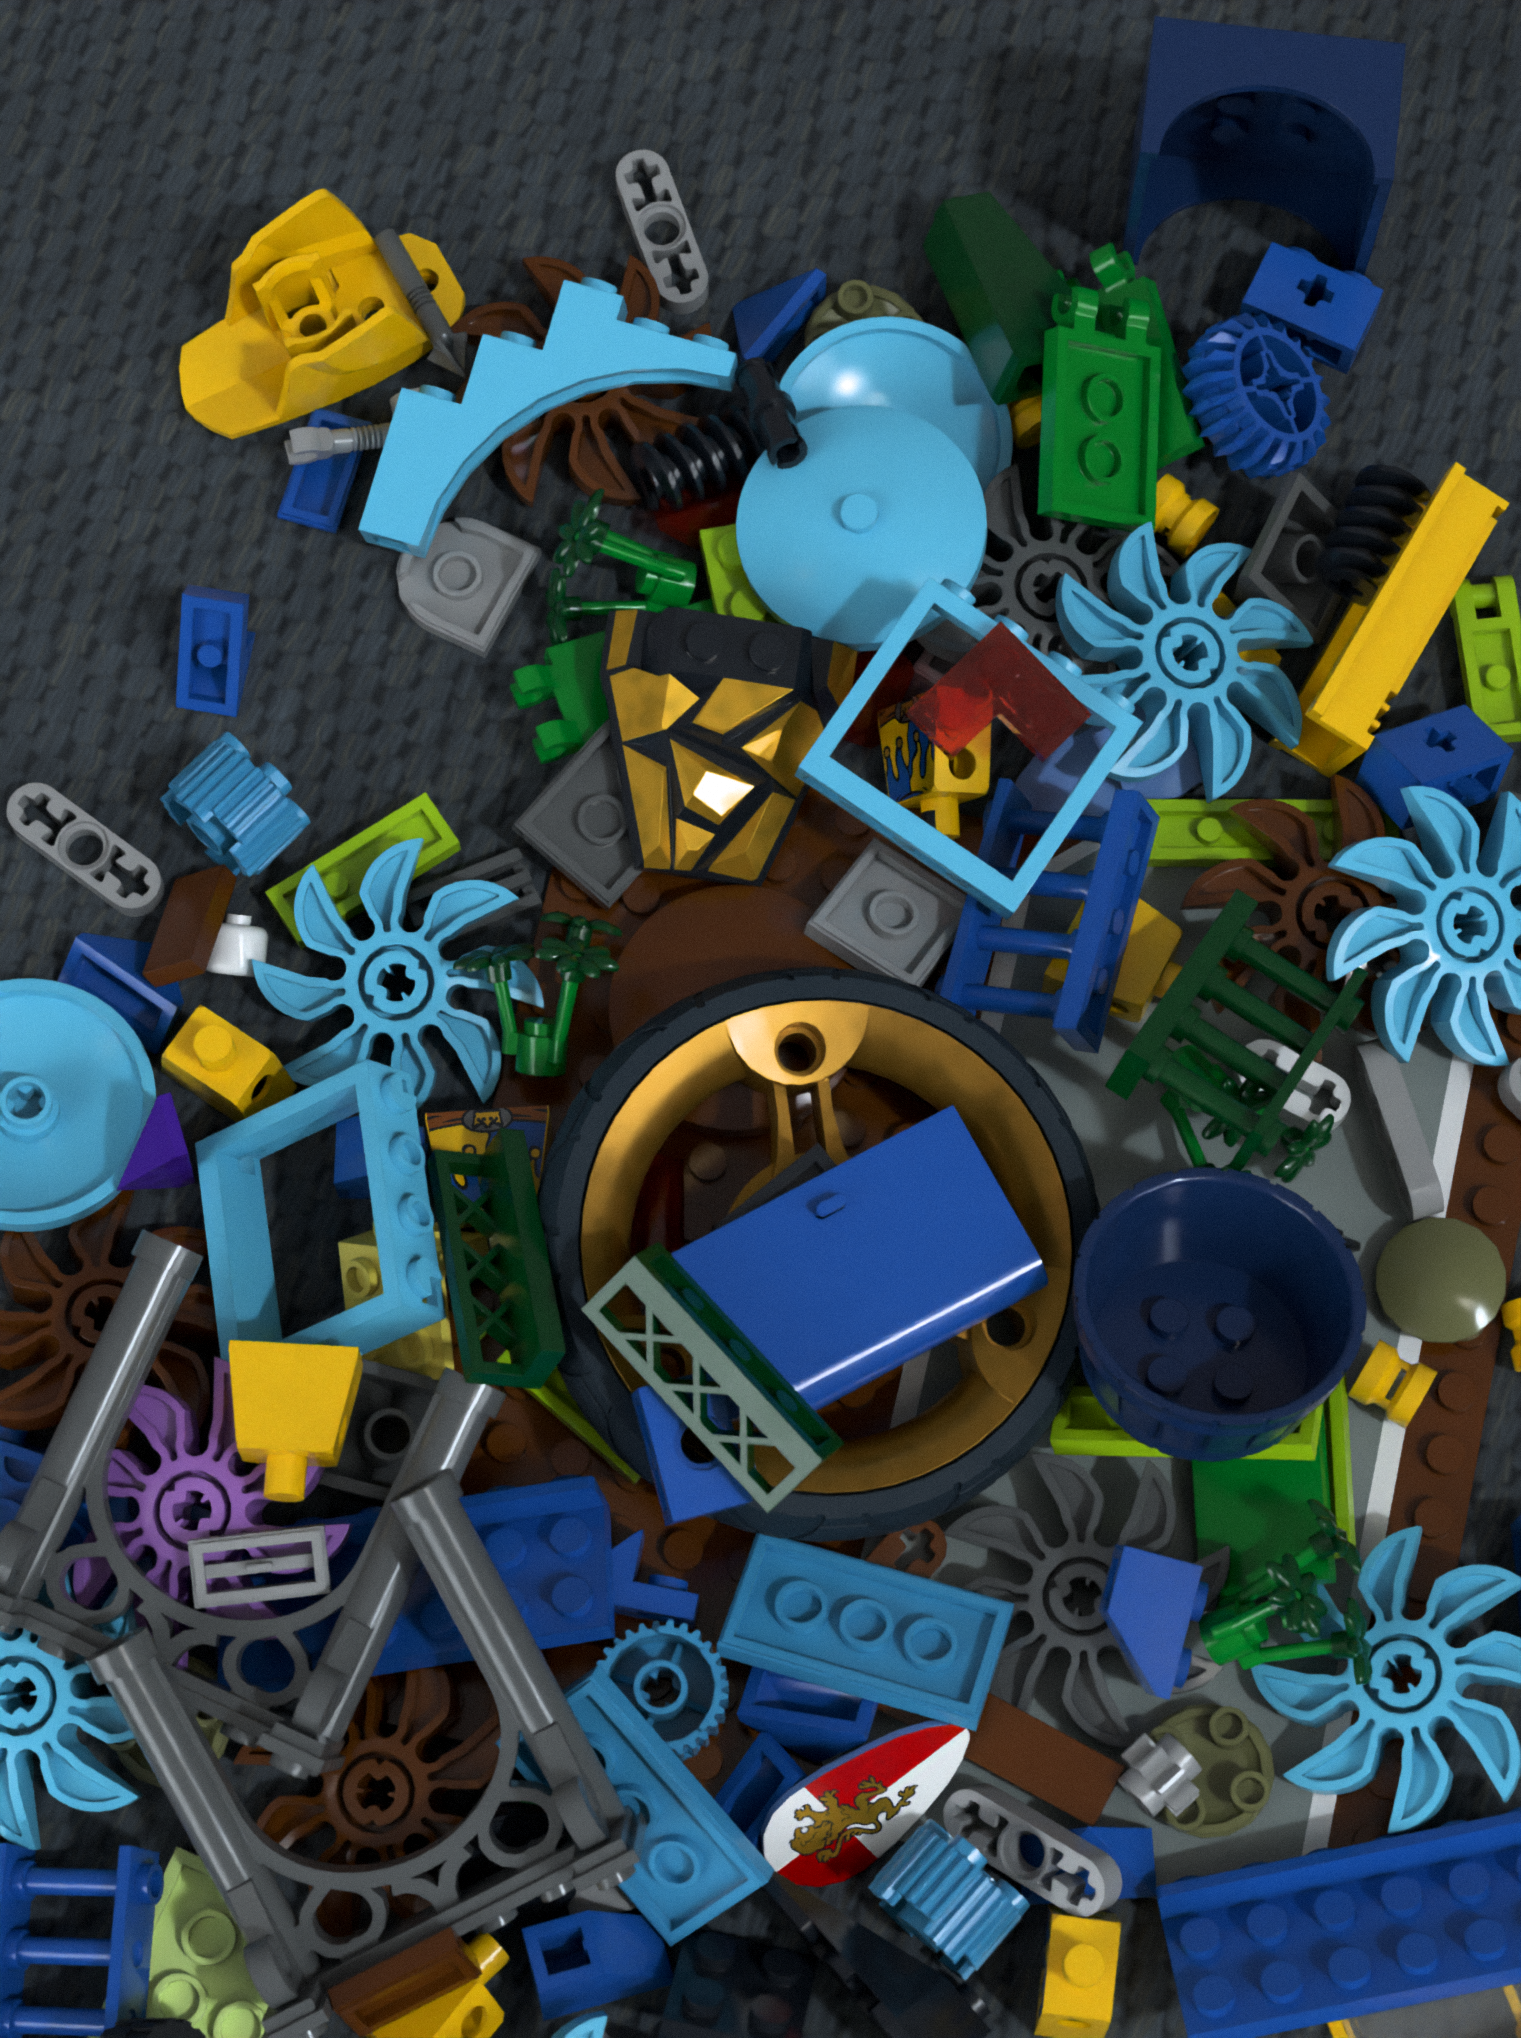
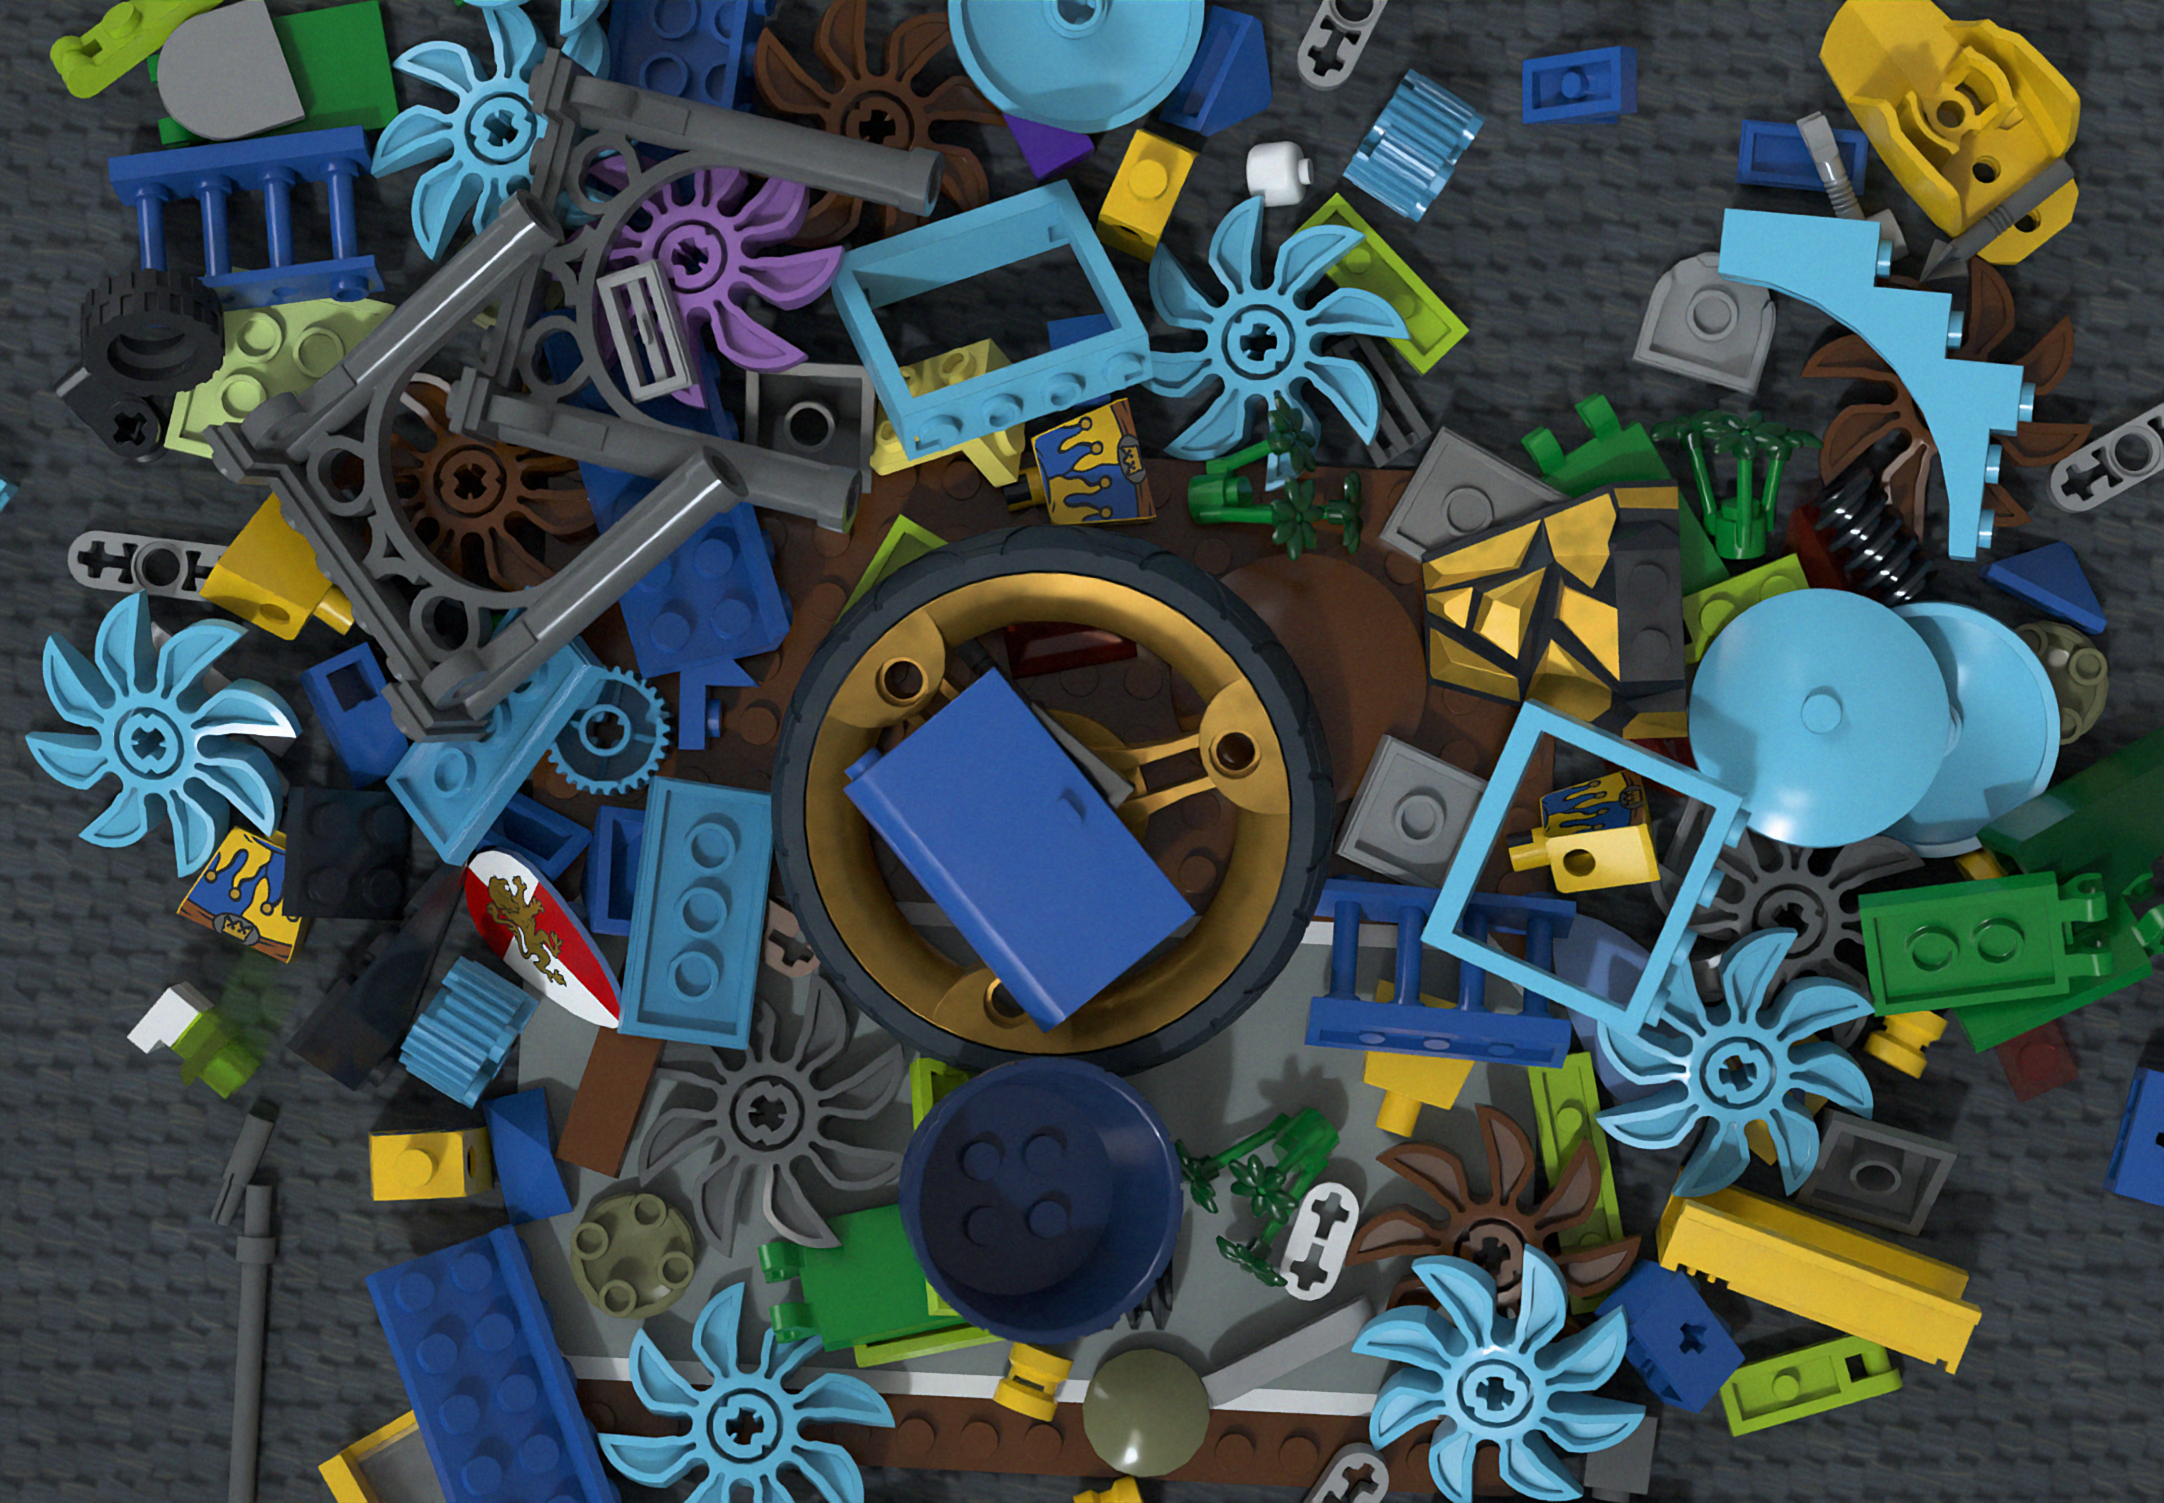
camera: 85 degrees right, 15 degrees up
(189, 926) = (1285, 126): reddish brown tile -> none
(292, 1408) = (793, 331): yellow torso -> none
(405, 1982) = (292, 545): reddish brown tile -> none
(519, 1260) = (979, 520): dark green fence -> none
(682, 1486) = (846, 692): blue brick -> none
(729, 1359) = (893, 742): fence -> none
(771, 413) = (1921, 604): black pin -> none
(1003, 682) = (1645, 887): clear red plate -> none
(1061, 1849) = (527, 1130): light grey beam -> none
(1149, 1612) = (759, 1179): blue slope -> none
(1160, 1774) = (610, 1212): light grey gear -> none
(1180, 1020) = (1332, 1119): dark green fence -> none
(1240, 1624) = (758, 1267): plant -> none
(1256, 396) = (2081, 1090): blue gear -> none
(1370, 531) = (1911, 1236): black piece -> none

